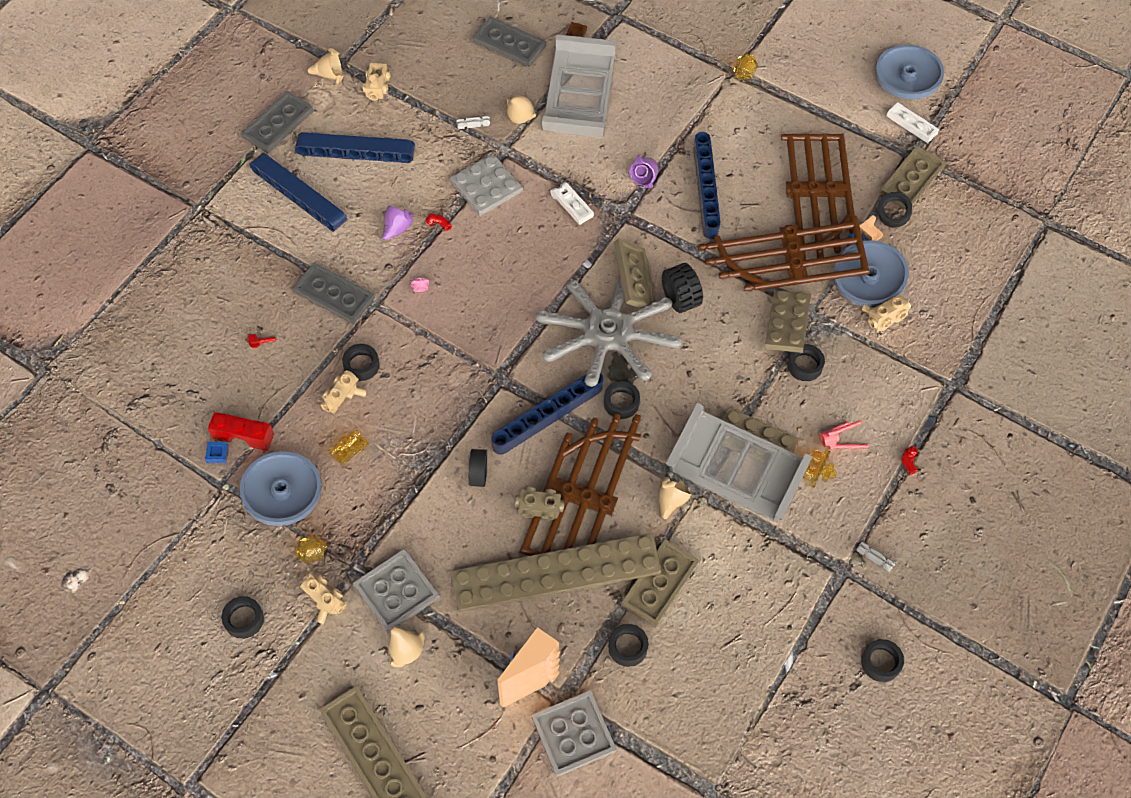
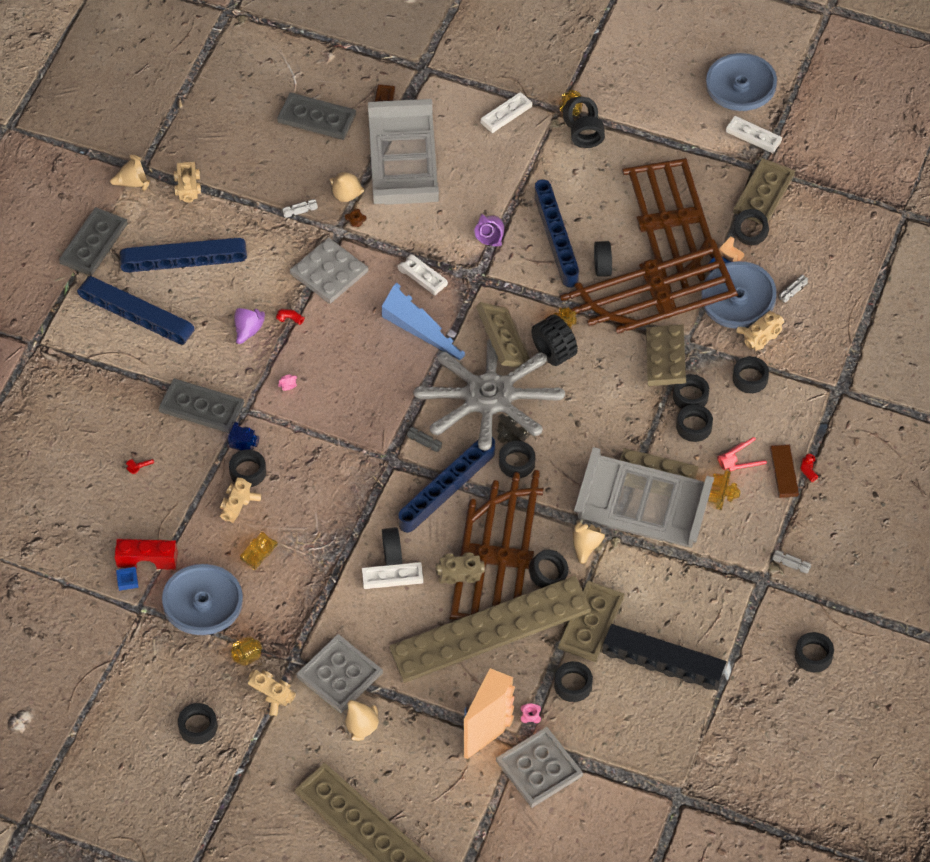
camera: 10 degrees left, 5 degrees down
(363, 331) = (242, 438): none -> clear blue brick
(473, 497) = (392, 575): none -> white plate
(522, 140) = (356, 222): none -> reddish brown plate
(537, 363) = (424, 439): none -> dark grey axle
(551, 243) = (406, 315): none -> medium blue wedge
(577, 665) = (530, 708): none -> bright pink plate
(640, 512) = (557, 559): none -> black tyre
(683, 65) = (506, 112): none -> white plate
(699, 266) = (567, 315): none -> clear yellow gear
(726, 636) = (664, 657): none -> black brick
(745, 216) = (603, 258): none -> black tyre
(755, 85) = (587, 123): none -> black tyre
(764, 76) = (570, 104): none -> black tyre
(806, 381) = (696, 411): none -> black tyre
(872, 343) = (751, 363): none -> black tyre
(884, 459) = (784, 471): none -> reddish brown tile
(925, 275) = (793, 288): none -> light grey axle

